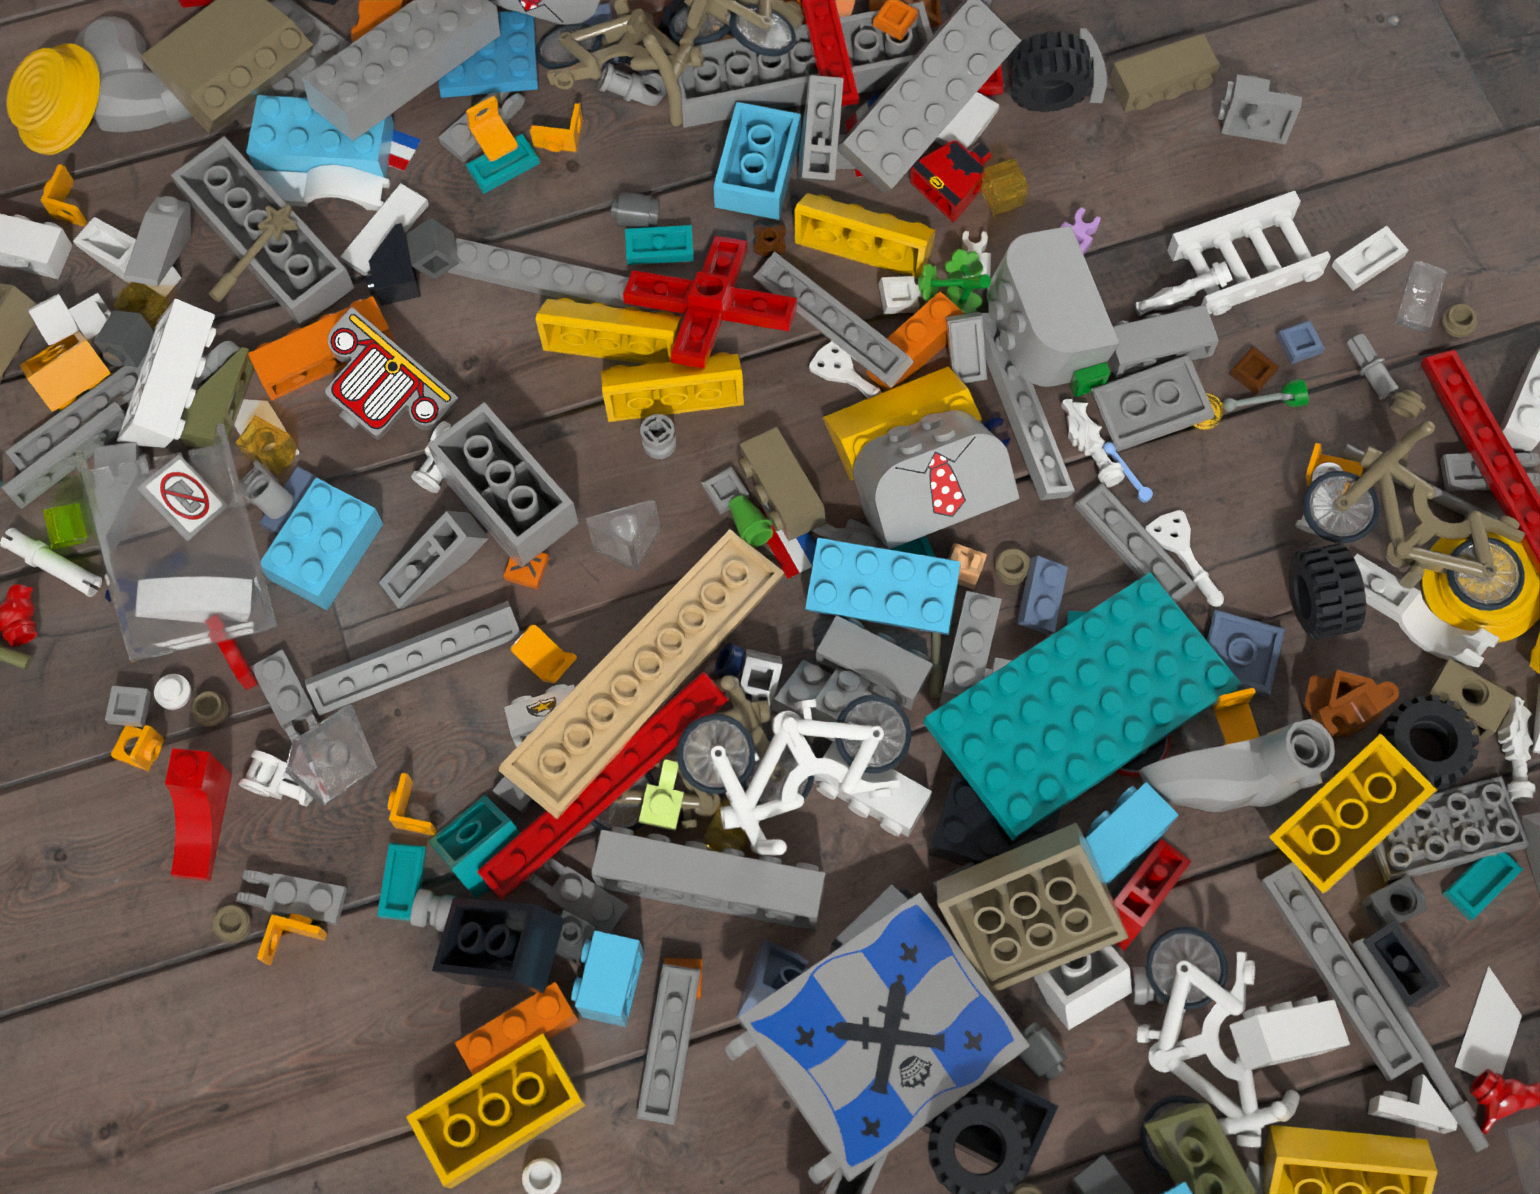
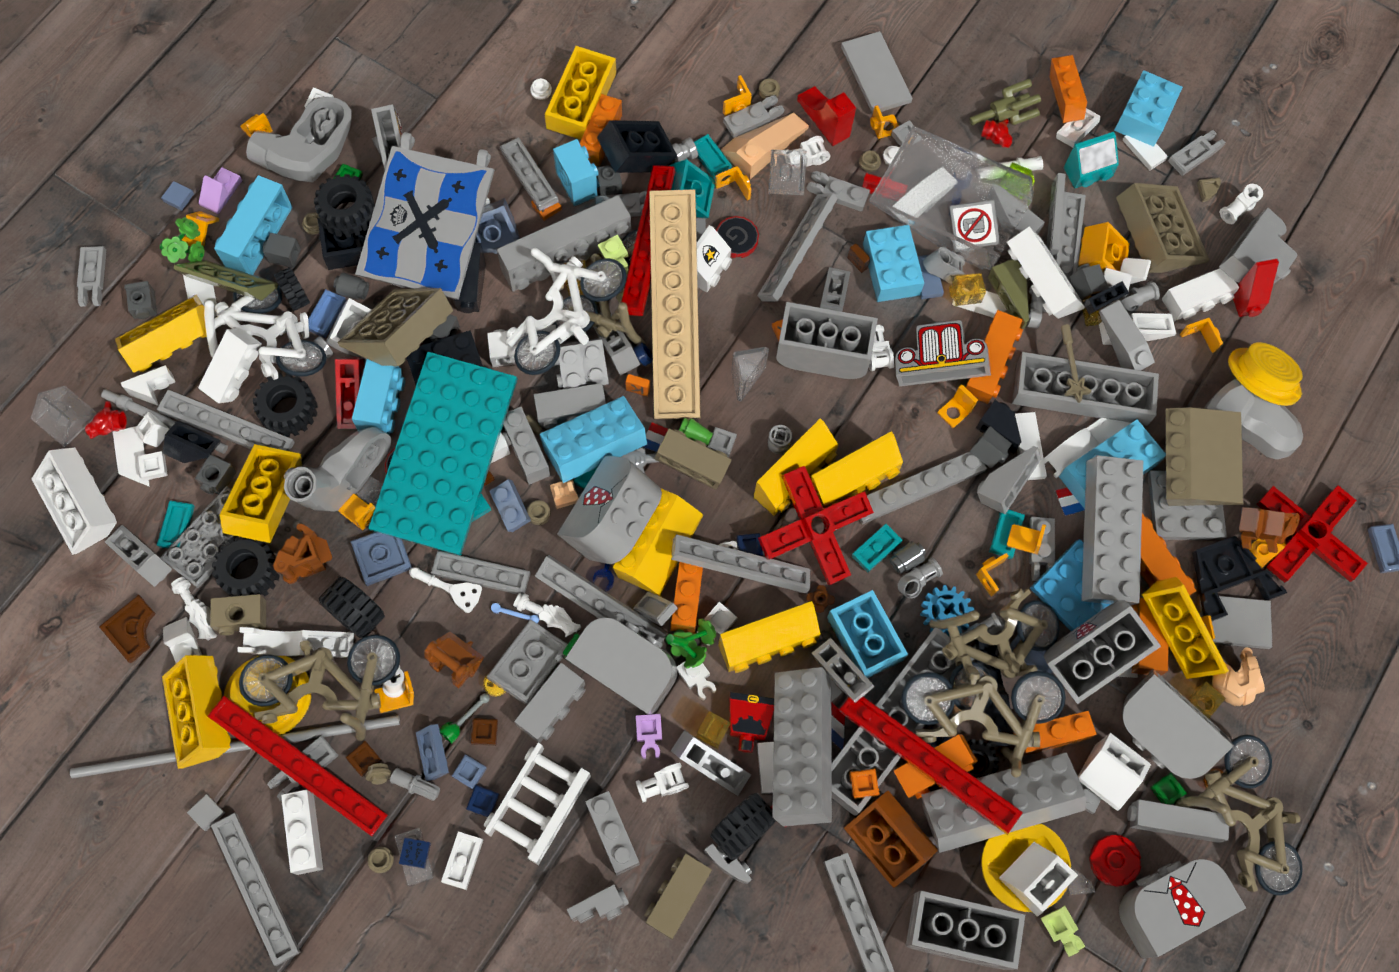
camera: 135 degrees right, 0 degrees up
(71, 829) = (876, 72): none -> light grey tile
(79, 290) = (1139, 296): none -> light grey connector
(131, 297) = (1105, 297): none -> black piece
(321, 843) = (753, 149): none -> light nougat wedge
(354, 584) = (858, 258): none -> reddish brown tile
(409, 325) = (963, 401): none -> light orange bracket
(458, 200) = (1006, 482): none -> light grey slope
(474, 736) = (739, 235): none -> black tile
(542, 655) = (736, 293): light orange bracket -> none
(632, 136) = (940, 605): none -> dark azure gear
(639, 182) = (920, 577): none -> light grey connector
(770, 627) = (637, 385): none -> orange tile
(797, 352) = (749, 543): none -> dark blue tile
(1039, 166) = (710, 763): none -> light grey slope
(1095, 182) = (663, 783): none -> white connector
(1100, 1044) = (325, 313): none -> medium blue tile
(1129, 1101) = (292, 288): none -> black tyre
(1173, 296) = (543, 765): white piece -> none
(1189, 171) = (612, 833): none -> light grey brick
(1228, 447) = (456, 655): none -> dark orange piece
(1265, 911) = (277, 390): none -> black tyre
(1306, 302) = (482, 801): none -> dark blue tile
(1331, 383) = (432, 752): none -> sand blue plate
(1420, 290) = (414, 853): none -> dark blue tile
(1423, 446) = (362, 758): none -> reddish brown tile
(1446, 1039) = (151, 430): none -> white slope
(1471, 983) = (152, 466): none -> white plate

